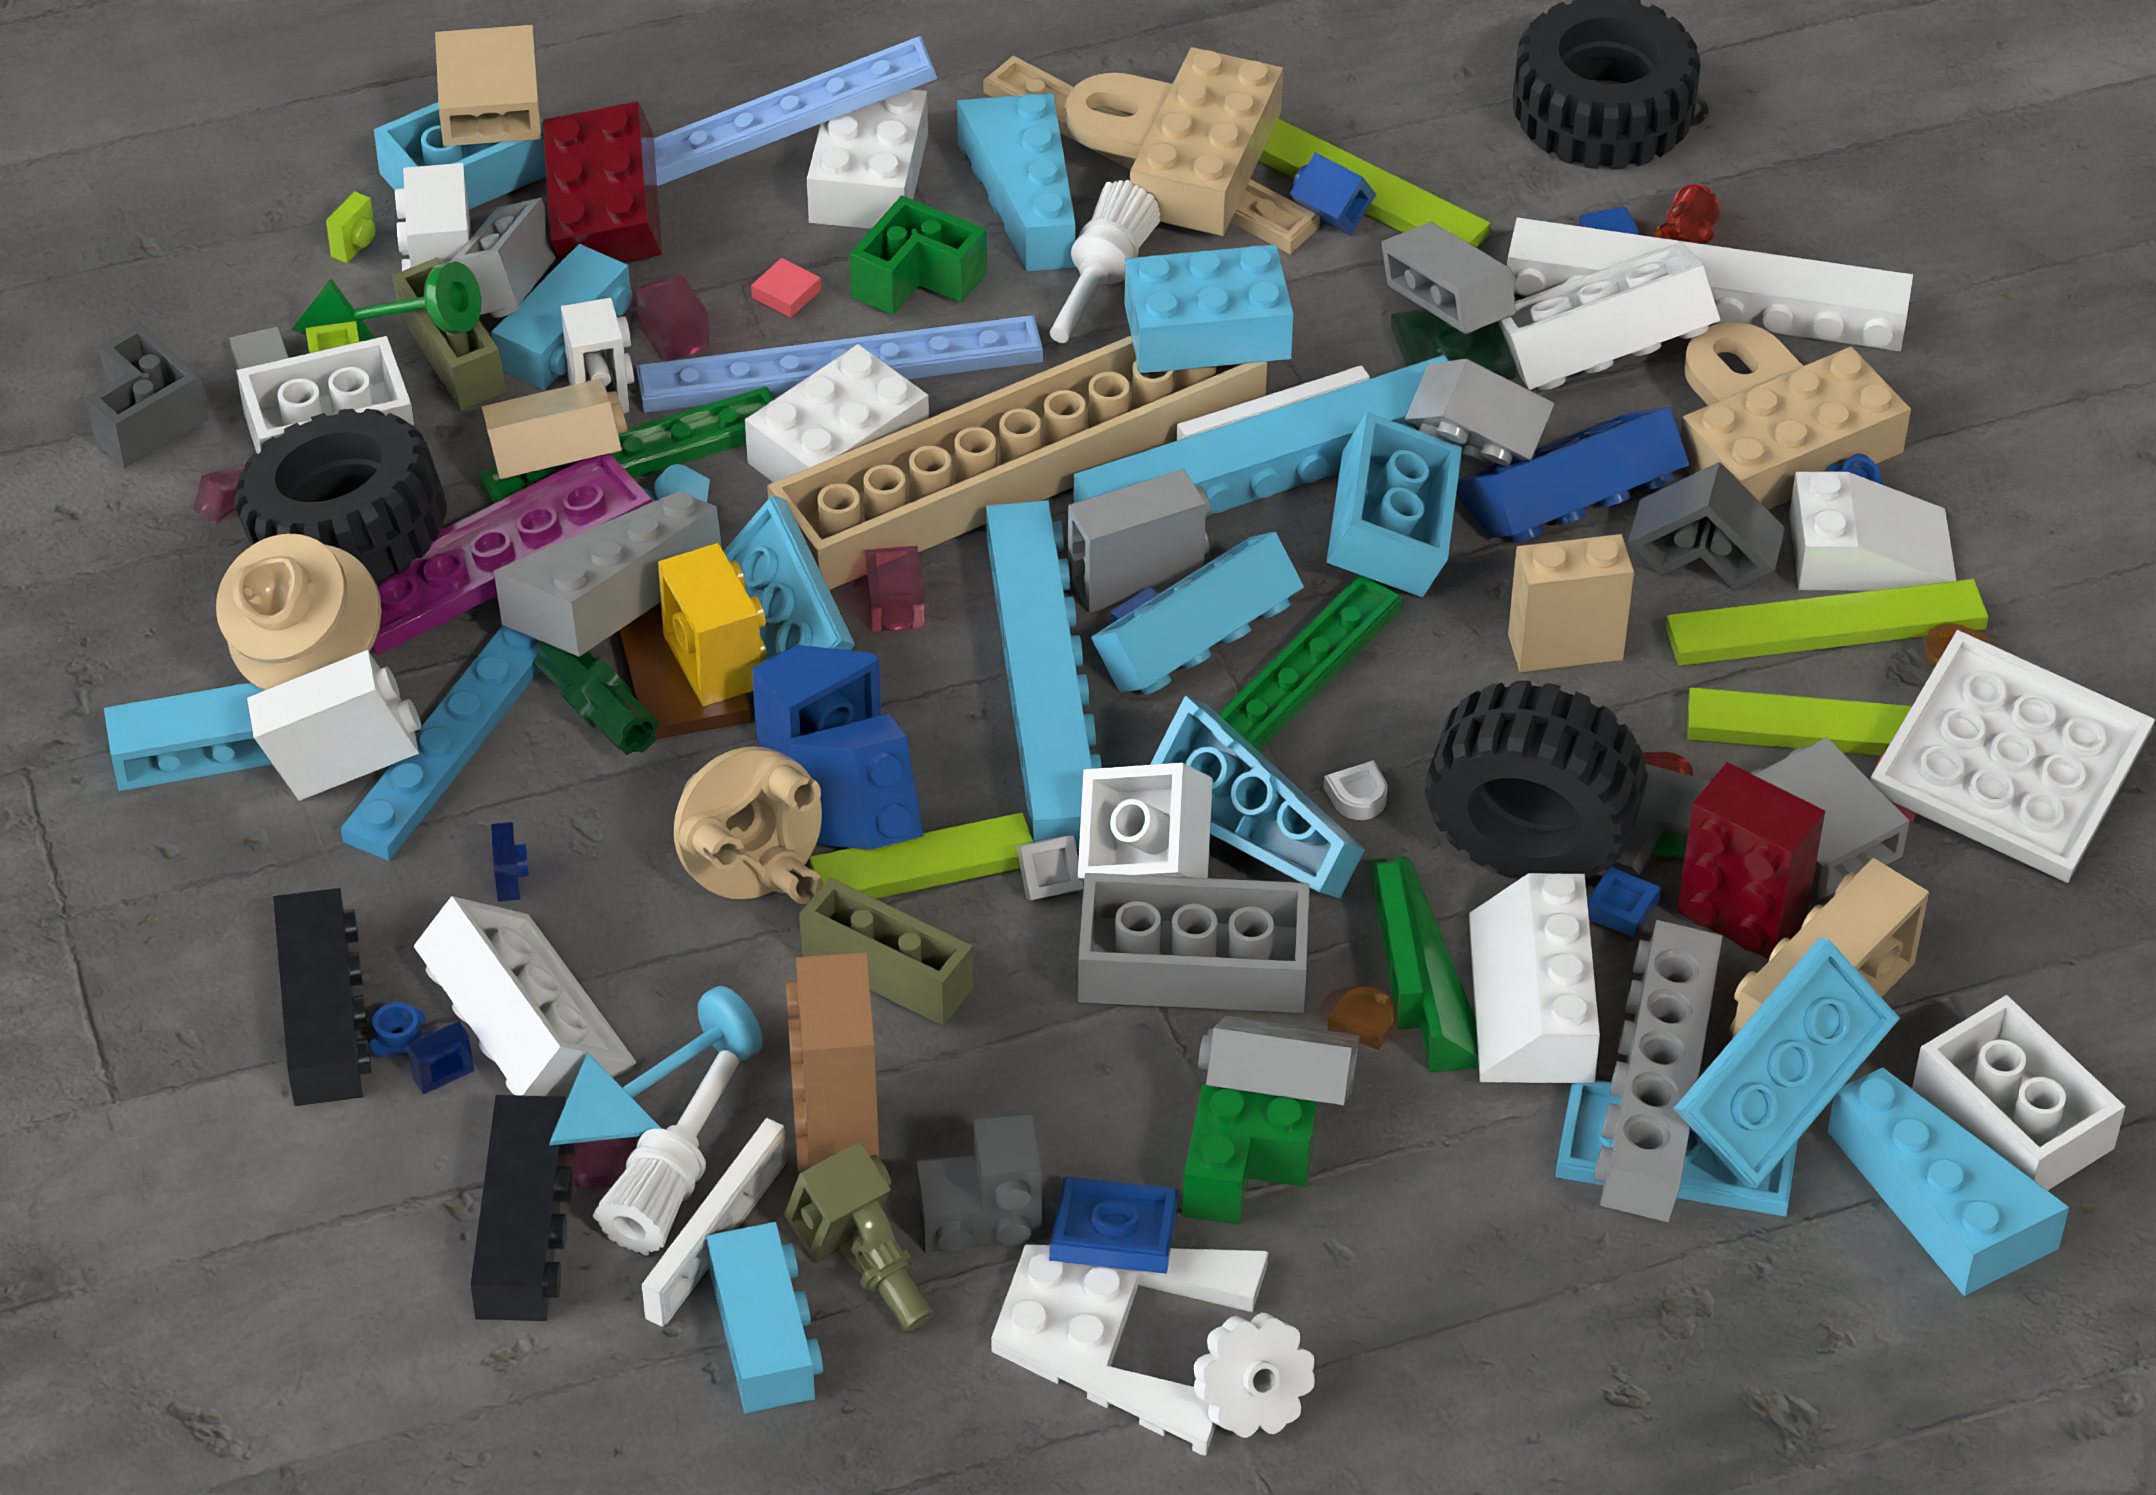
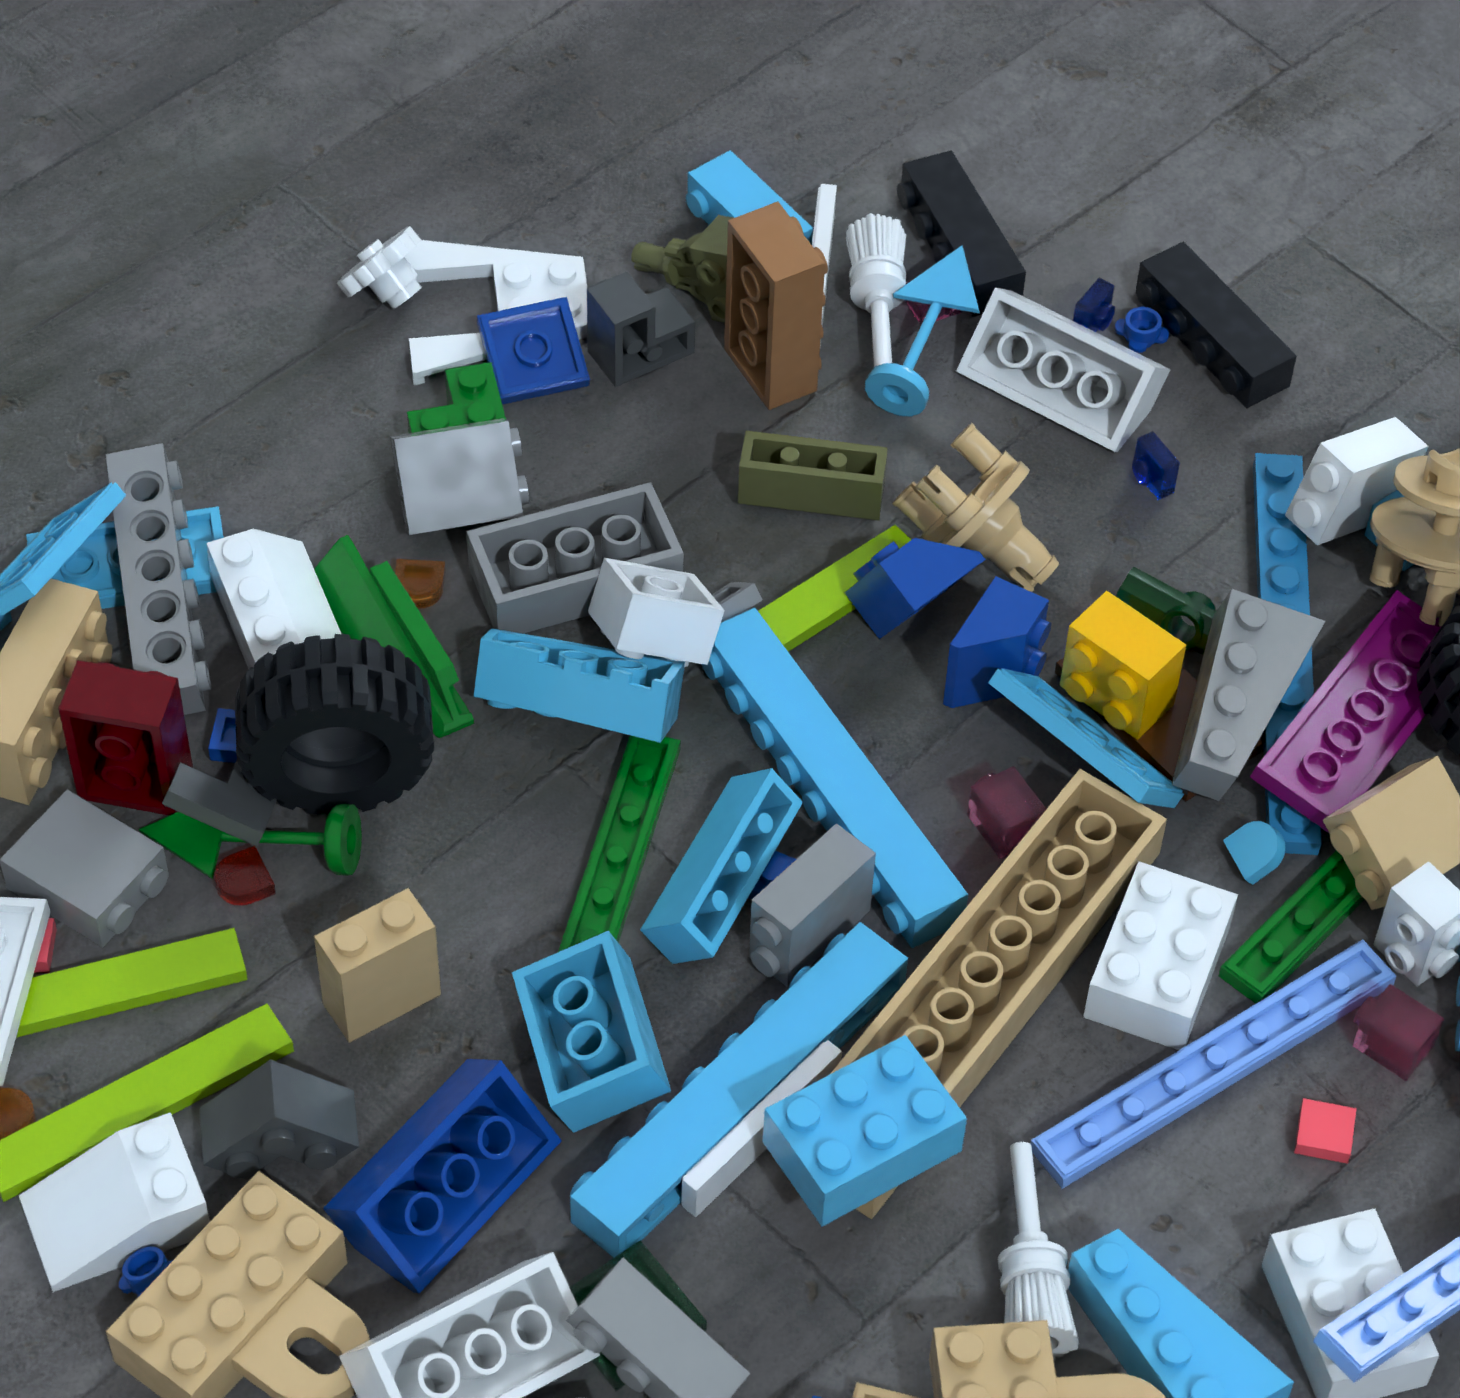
camera: 155 degrees right, 5 degrees up
(917, 248) = (1214, 1189): green brick -> none
(1357, 791) = (508, 776): white tile -> none
(1479, 412) = (546, 1139): light grey brick -> none

